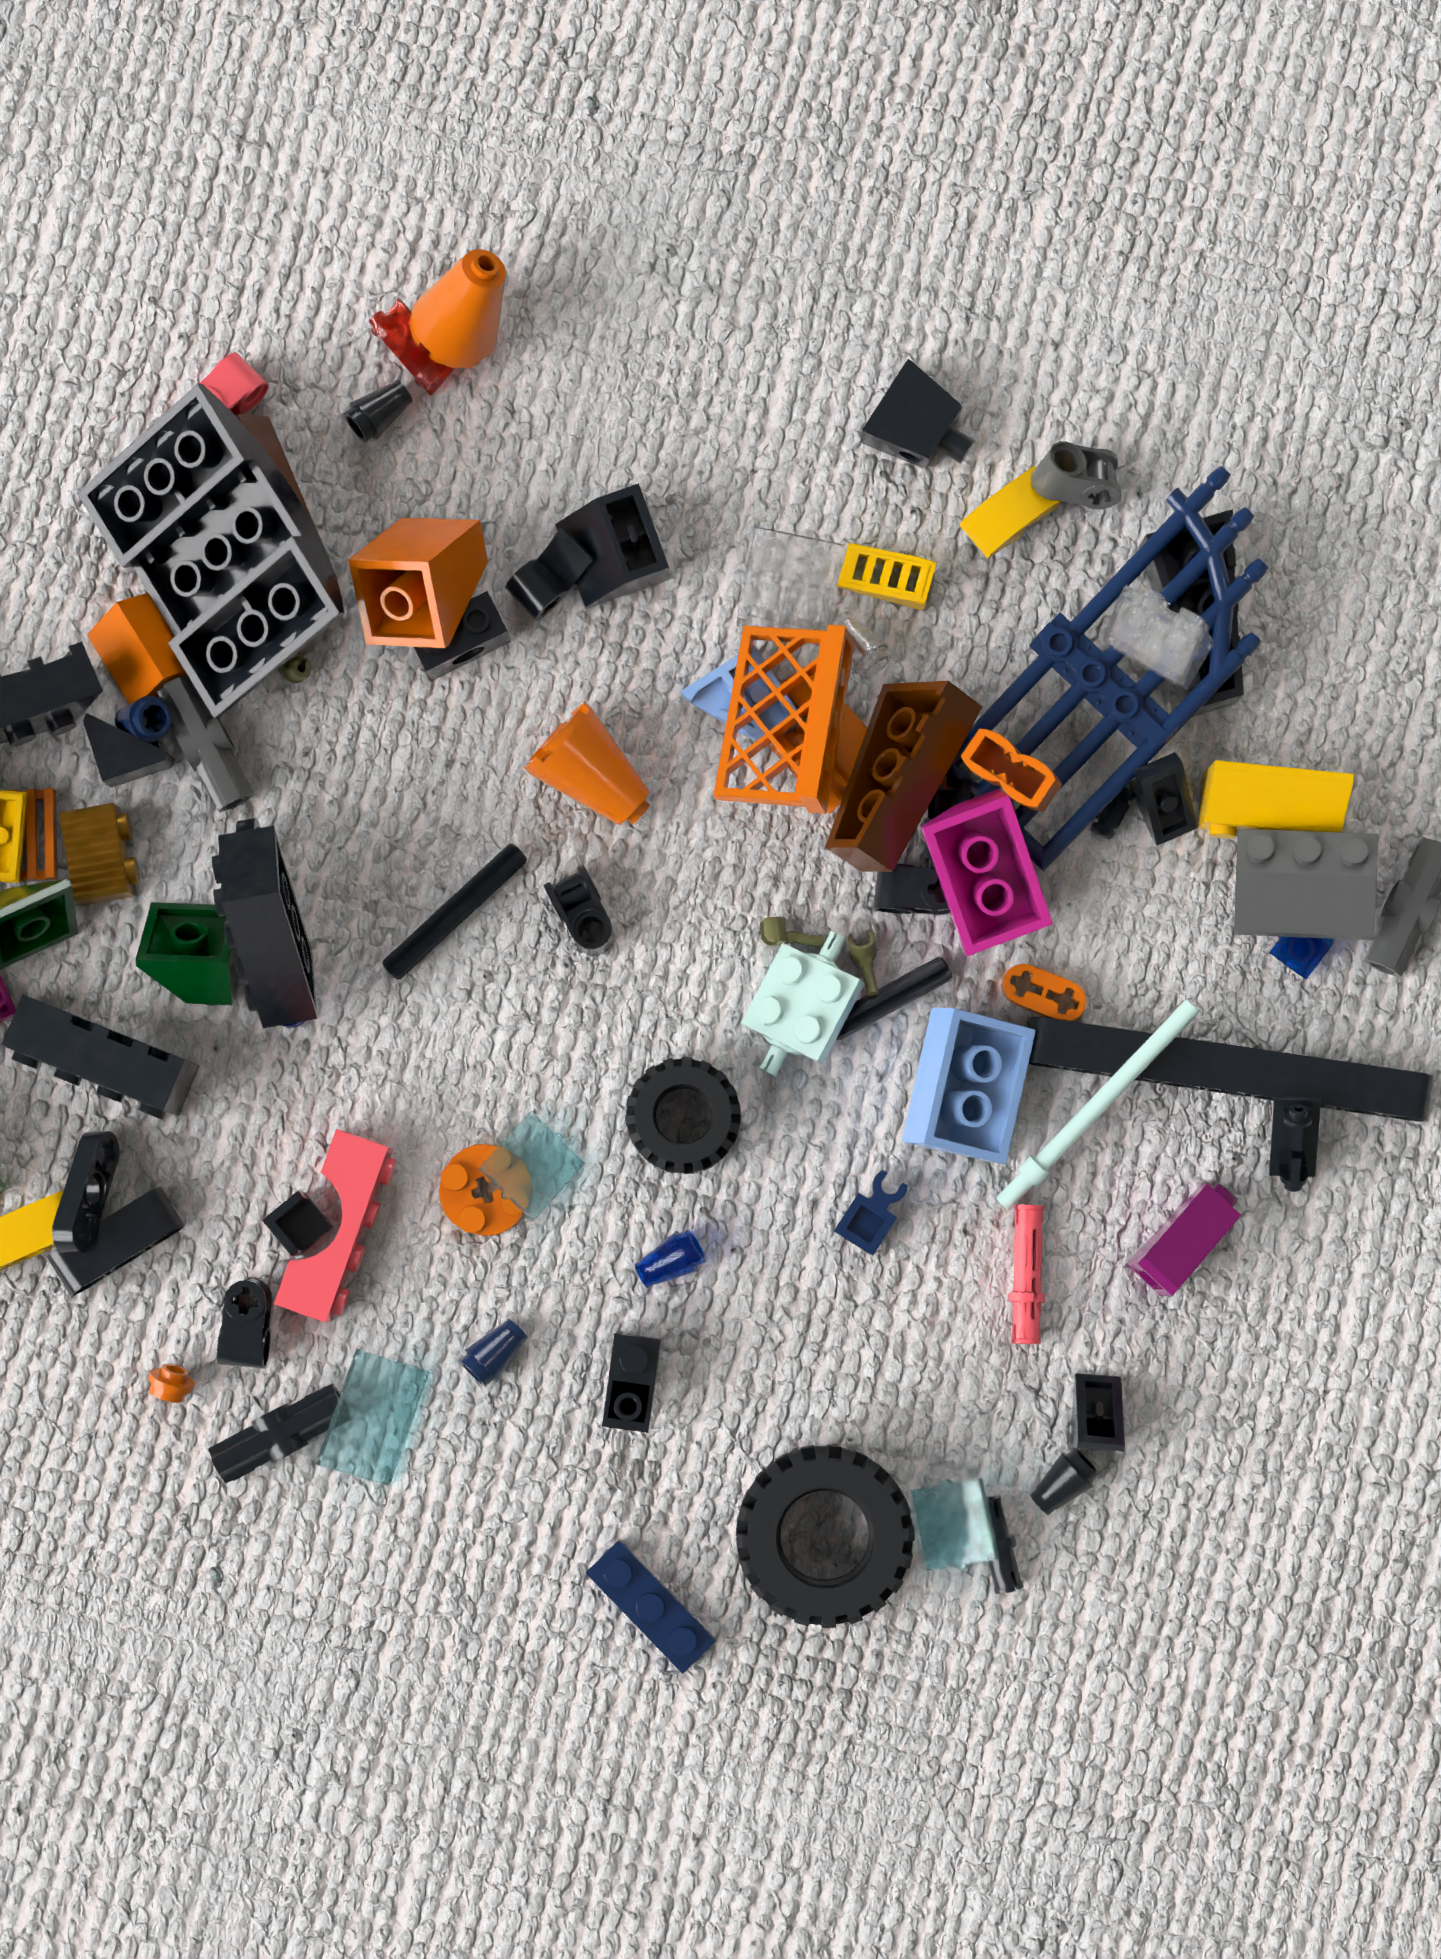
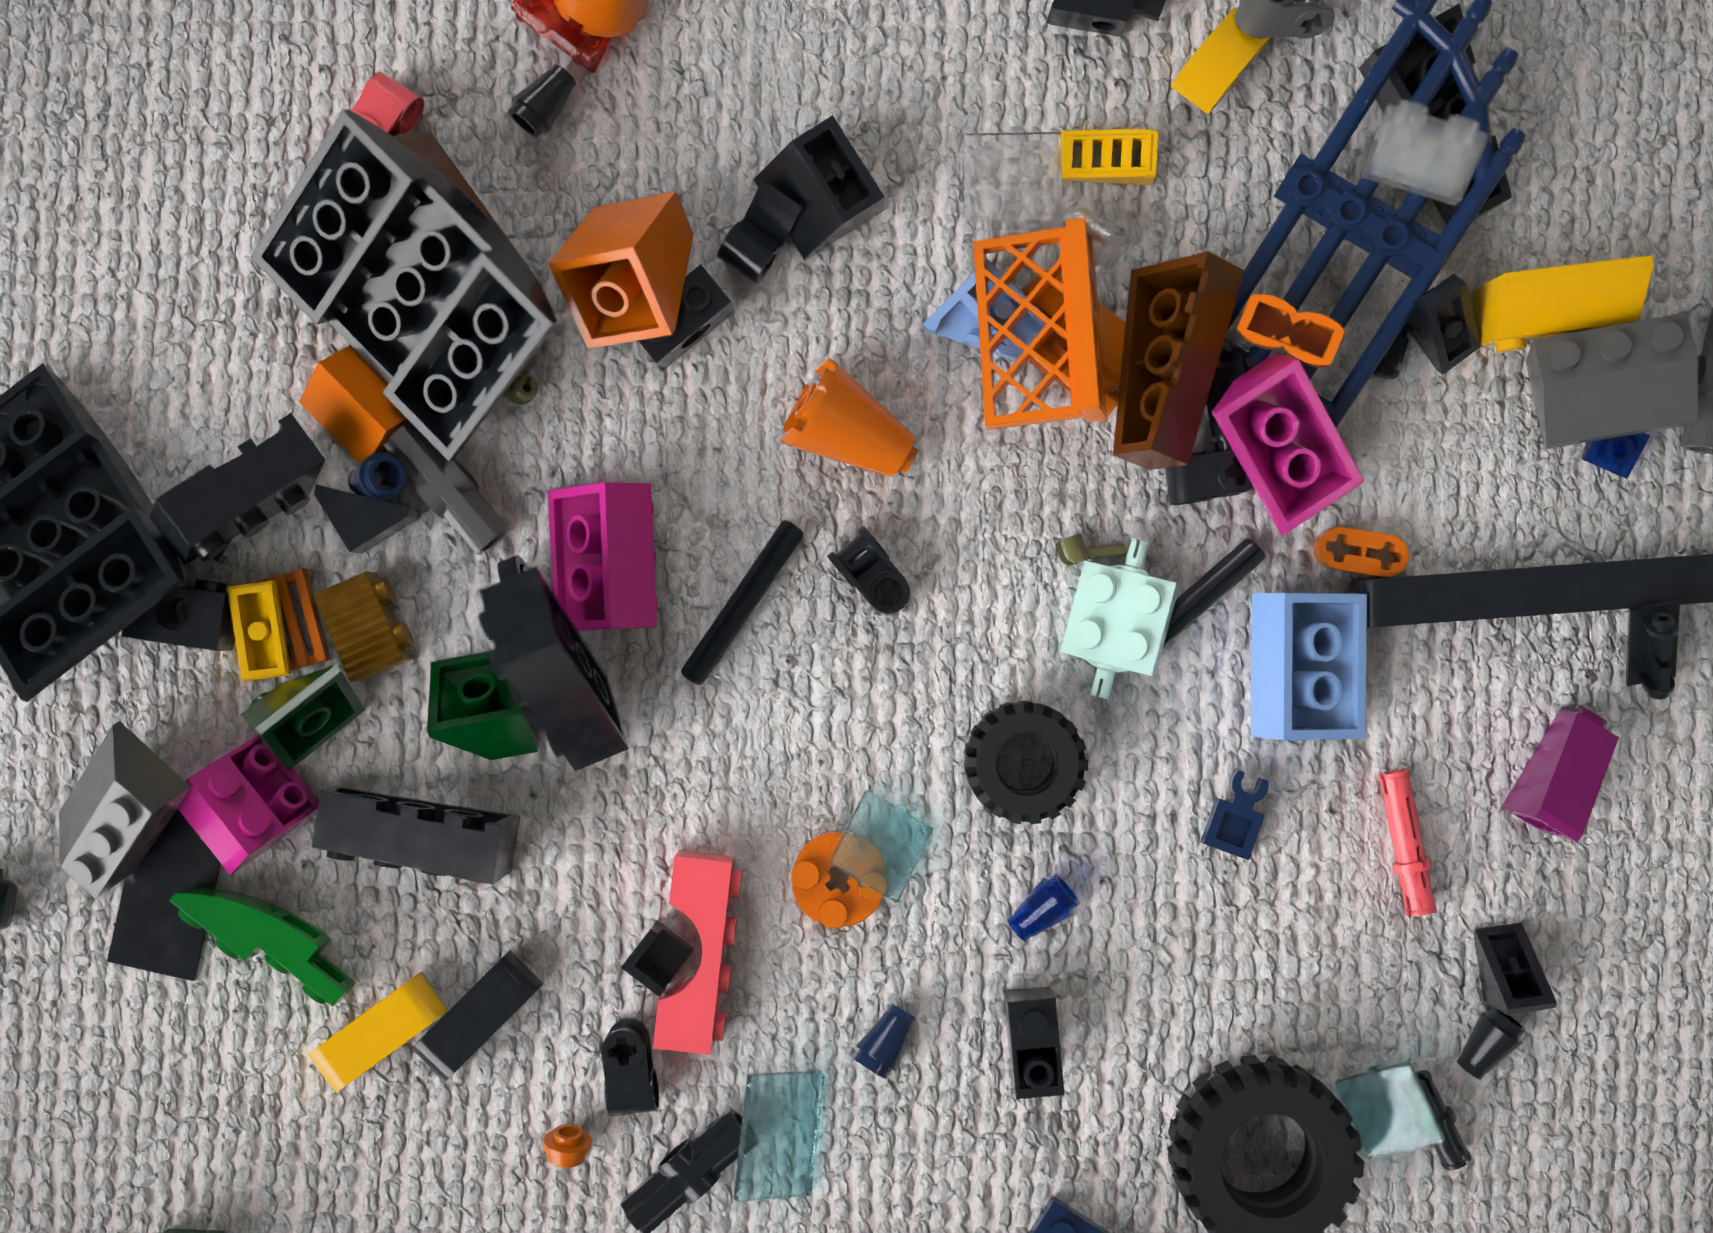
camera: 15 degrees left, 5 degrees up
(85, 1192) = (431, 1005): black beam -> none
(336, 837) = (604, 555): none -> dark pink slope
(864, 957) = (1171, 556): olive hand -> none
(1036, 1169) = (1394, 734): light aqua bar -> none

